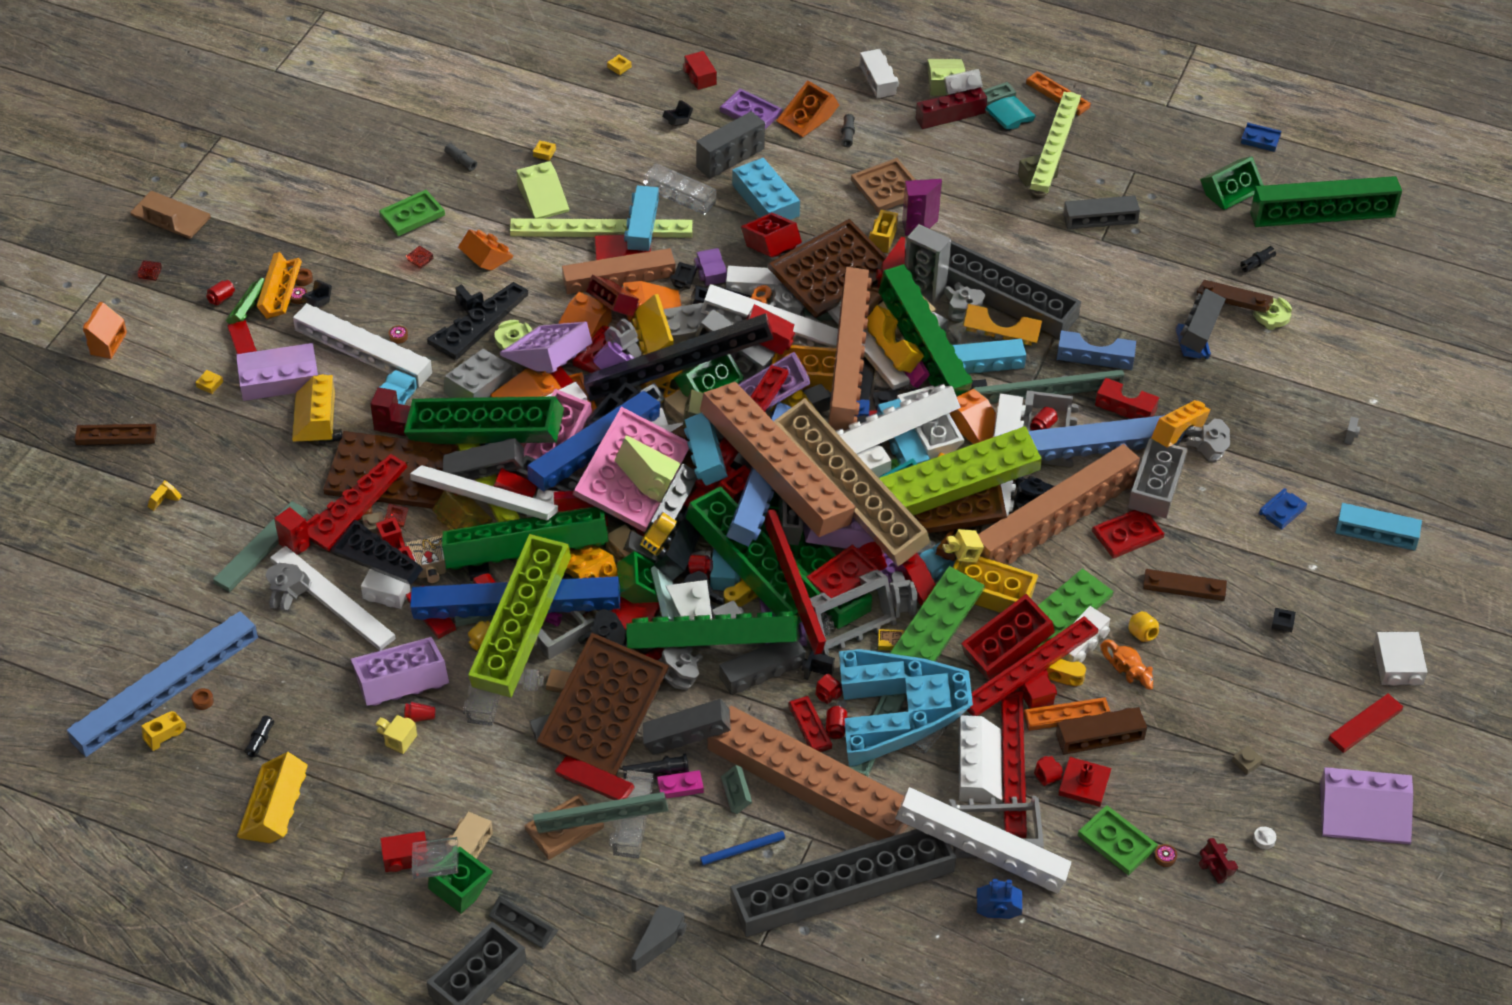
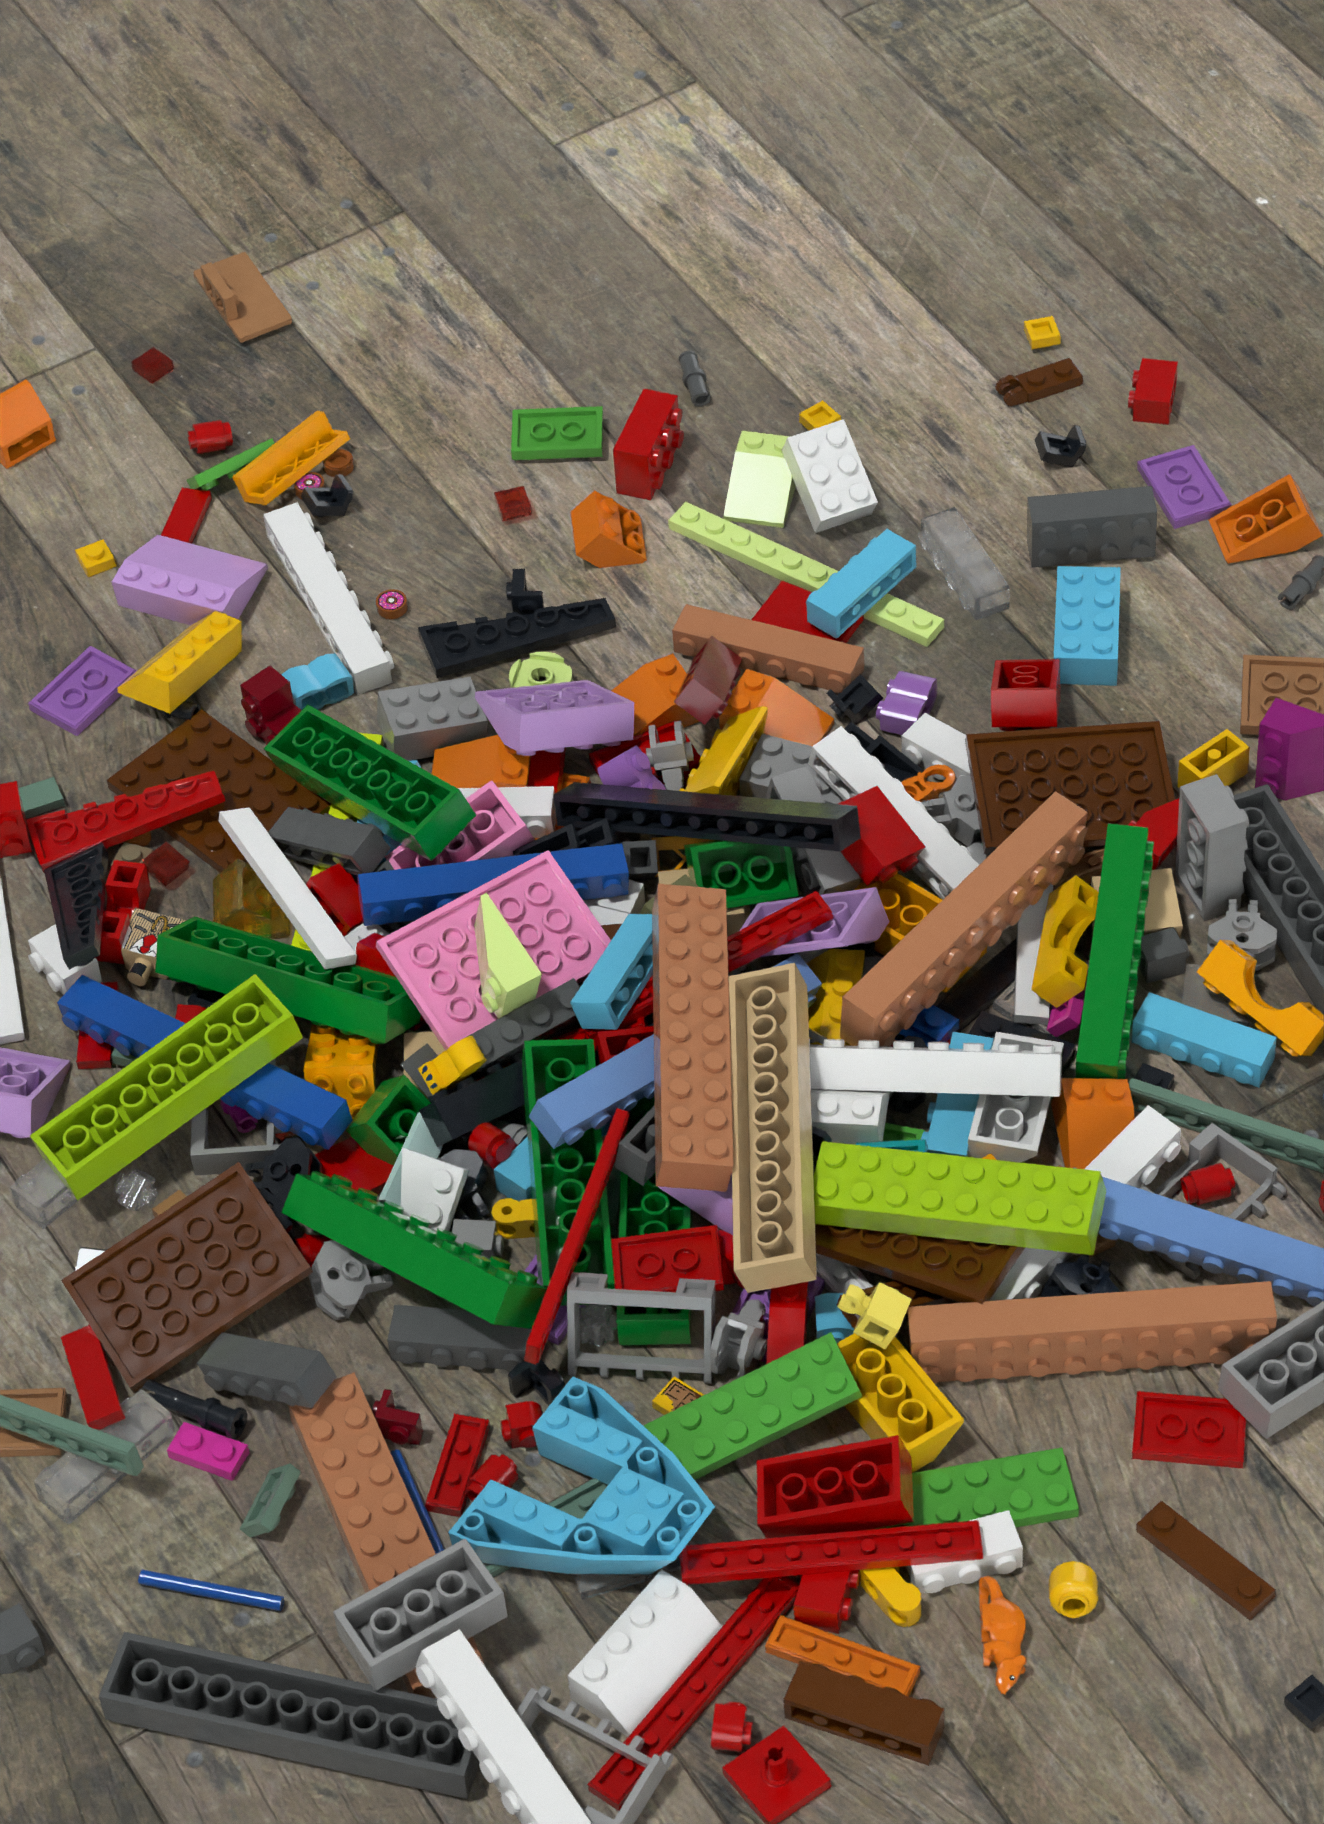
camera: 40 degrees right, 0 degrees up
(265, 451) = (81, 691): none -> medium lavender tile
(471, 197) = (647, 444): none -> red brick
(581, 173) = (829, 476): none -> white brick
(638, 88) = (1039, 382): none -> reddish brown hinge
(770, 717) = (397, 1424): none -> dark red bracket
(877, 793) = (418, 1609): none -> light grey brick

